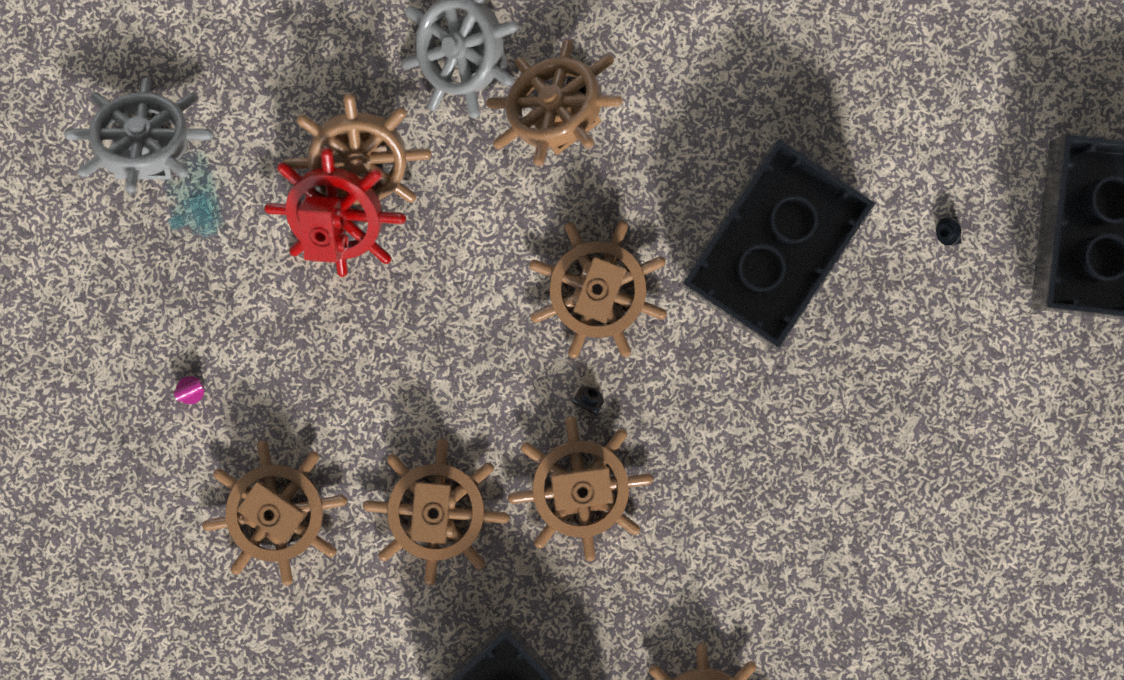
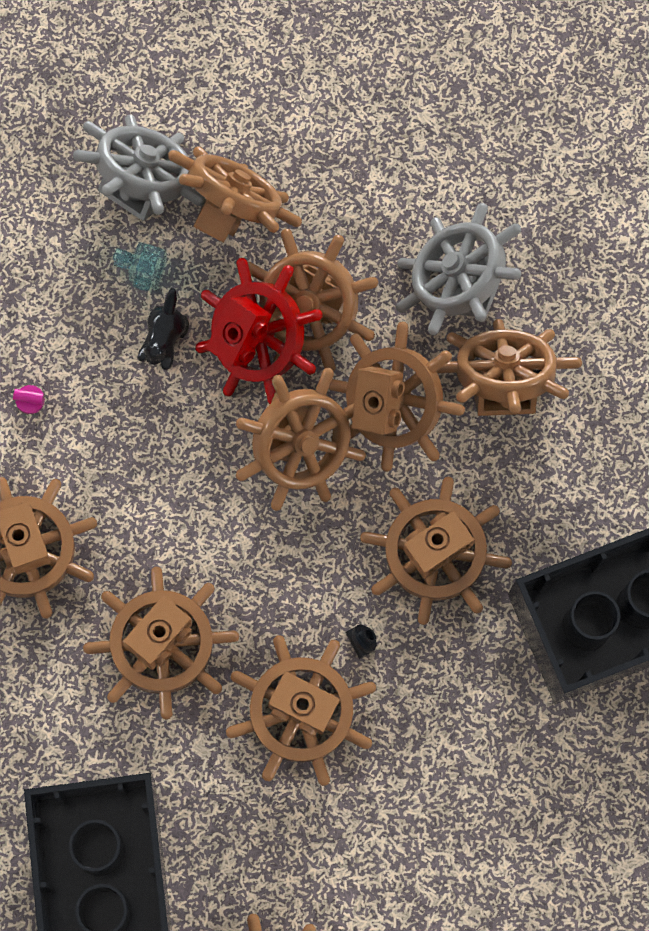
camera: 30 degrees right, 15 degrees down
(230, 110) = (231, 194): none -> medium nougat piece
(255, 257) = (164, 328): none -> black animal
(421, 279) = (289, 432): none -> medium nougat piece
(472, 201) = (384, 398): none -> medium nougat piece

